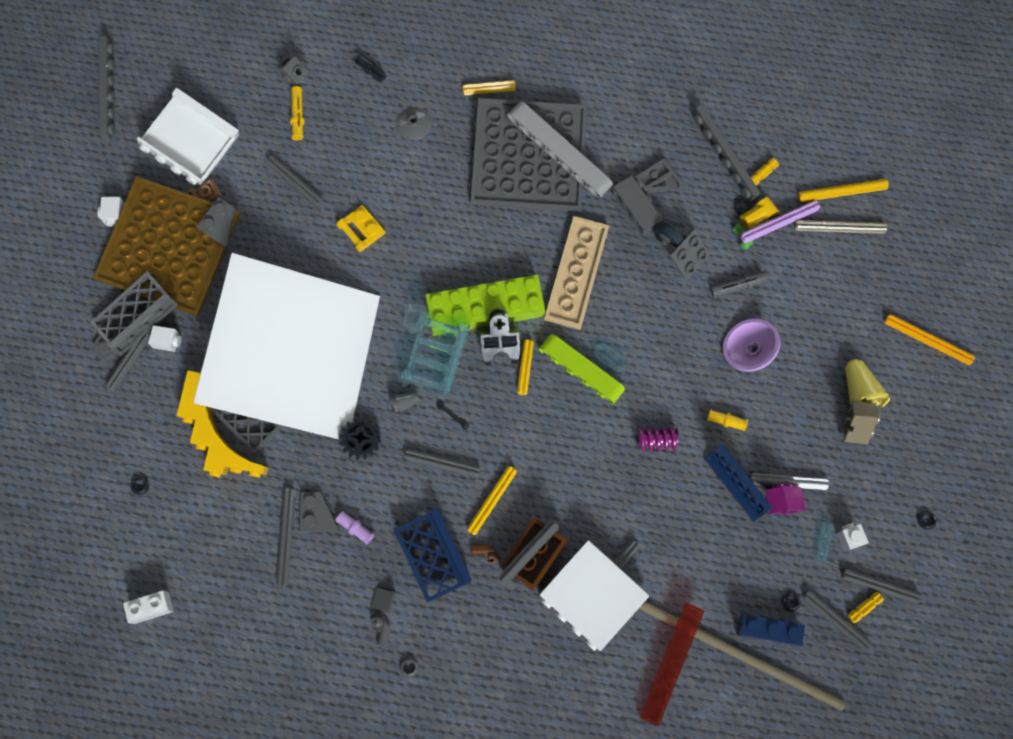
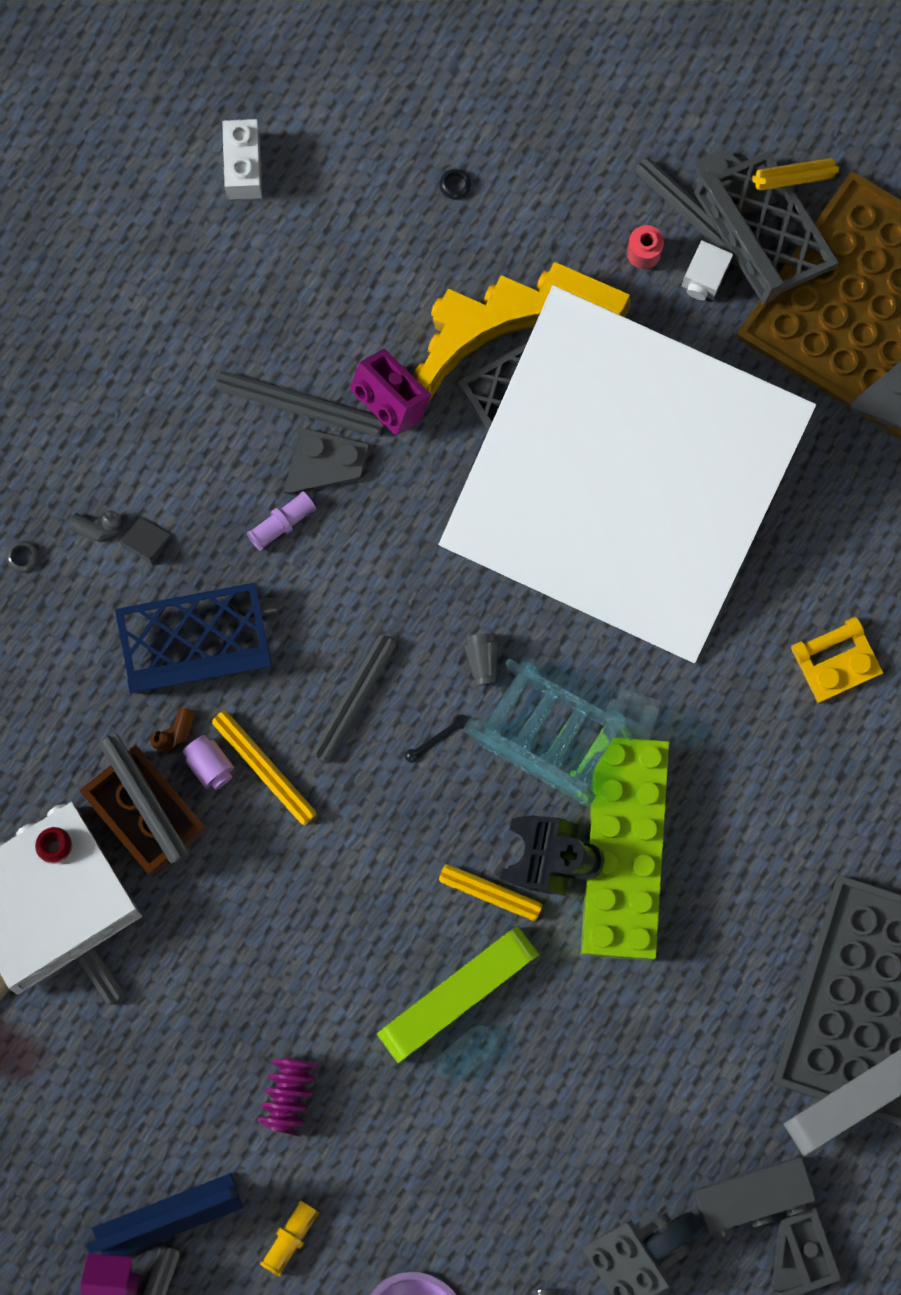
camera: 105 degrees right, 5 degrees up
(100, 304) = (795, 174): none -> yellow axle
(157, 372) = (645, 256): none -> coral brick
(269, 486) = (390, 391): none -> magenta brick
(353, 439) = (448, 570): black gear -> none
(497, 529) = (208, 762): none -> lavender brick
(566, 602) = (46, 837): none -> dark red plate
(576, 273) = (649, 1039): tan plate -> none

